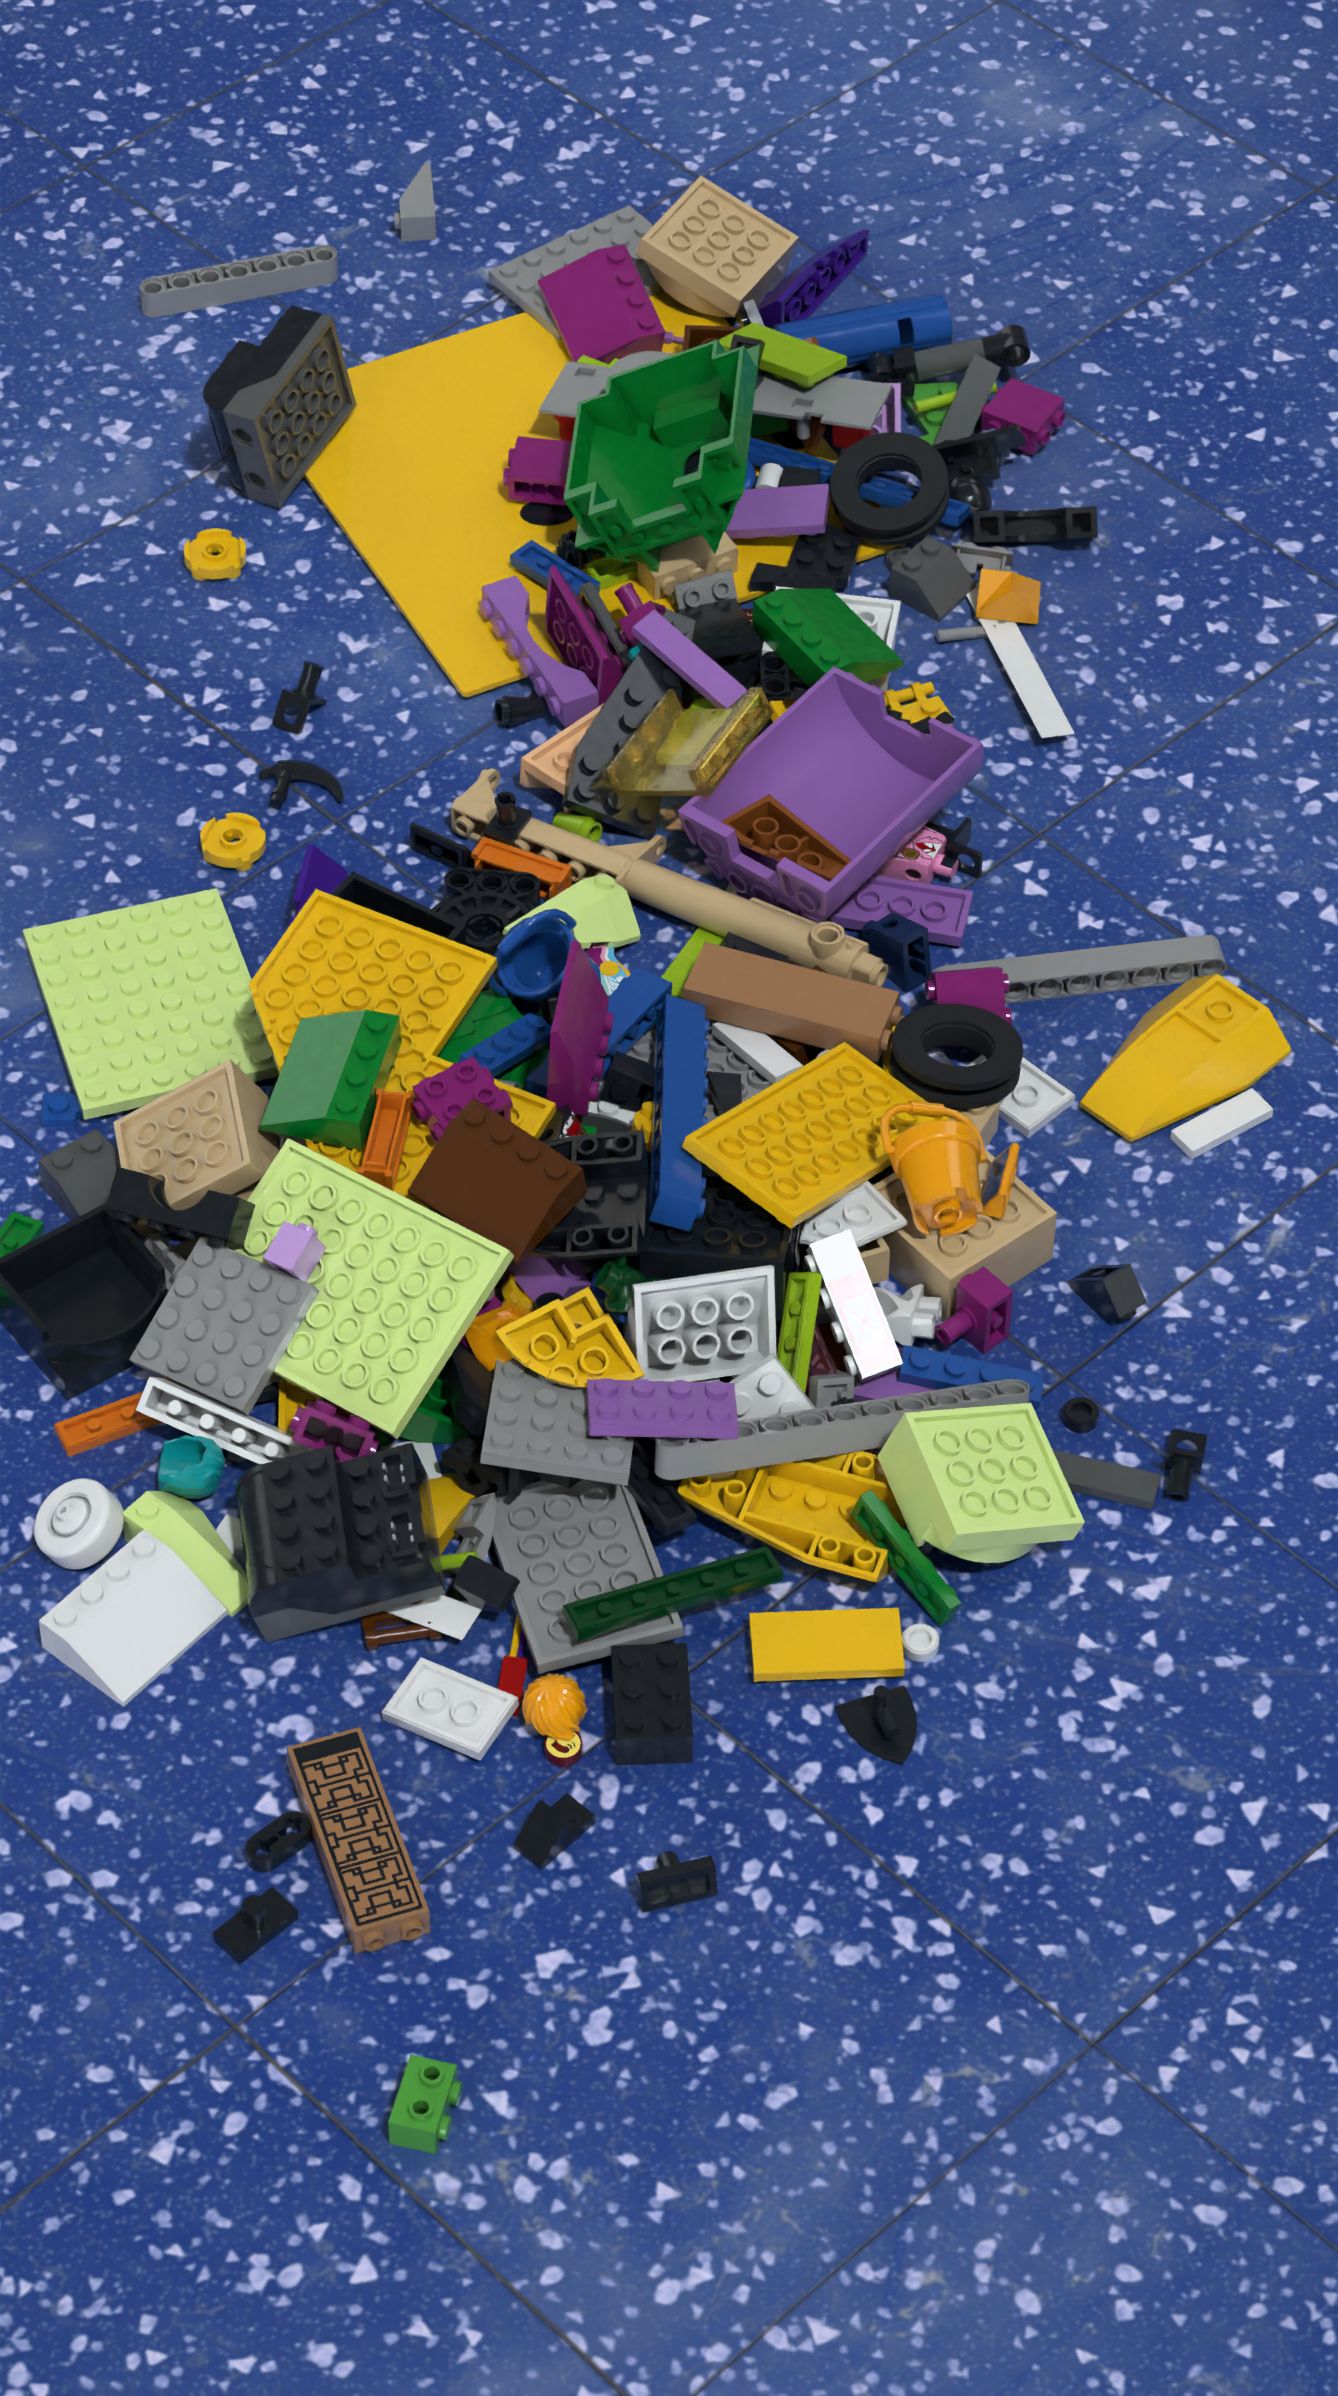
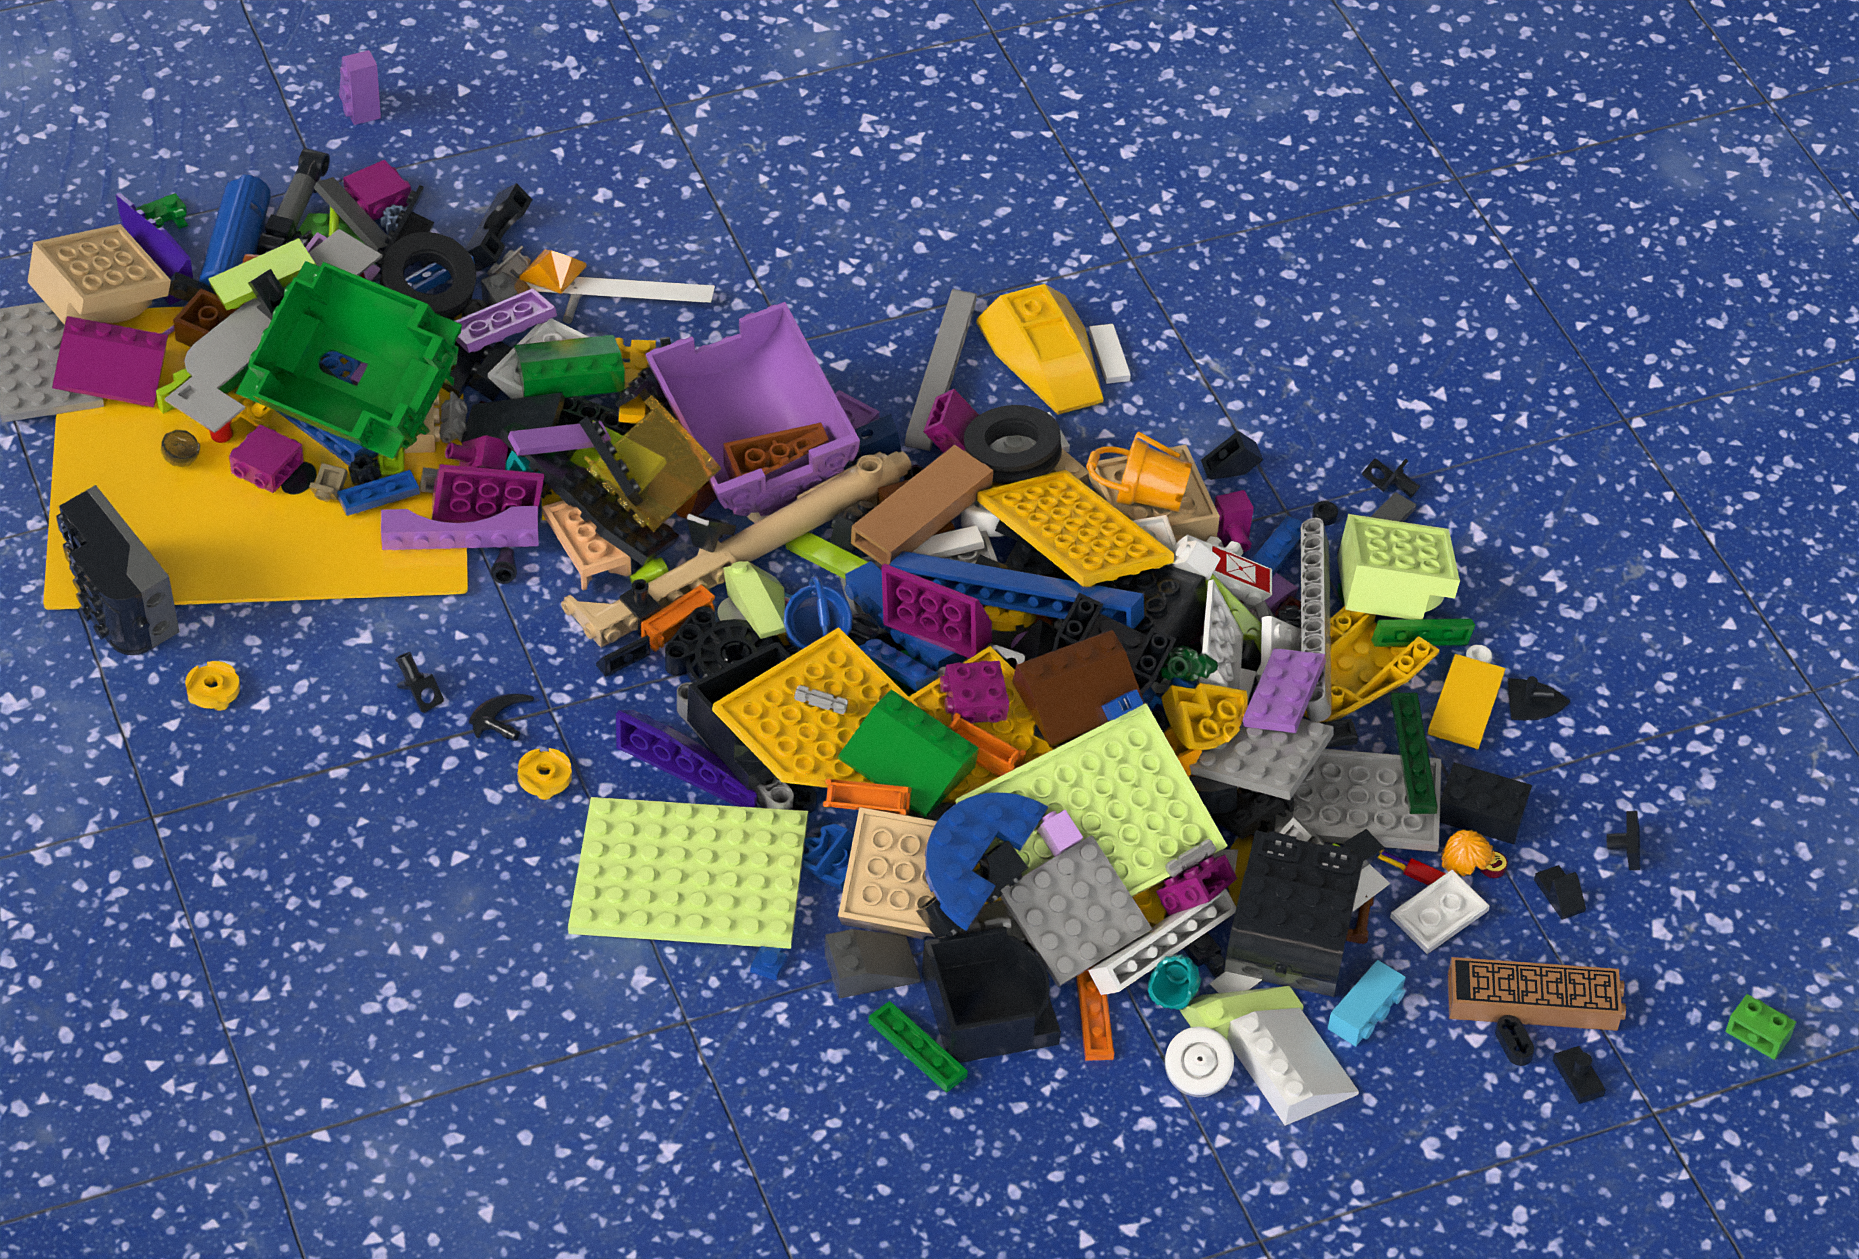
camera: 70 degrees left, 0 degrees up
(217, 1159) = (962, 840): none -> blue plate
(253, 1062) = (868, 795): none -> orange container
(258, 1668) = (1367, 1003): none -> medium azure brick
(348, 1401) = (1190, 858): none -> light grey axle
(372, 974) = (821, 699): none -> light grey axle
(493, 1229) = (1122, 705): none -> blue piece
(518, 405) = (180, 448): none -> clear smoke hair
(543, 531) = (328, 482): none -> dark tan bracket
(640, 828) = (707, 530): none -> black slope
(676, 711) = (617, 467): none -> black plate
(804, 1246) = (1196, 558): none -> white brick
(861, 566) = (504, 319): none -> medium lavender plate
(879, 279) = (166, 209): none -> green plate
(1162, 339) = (360, 87): none -> medium lavender wedge

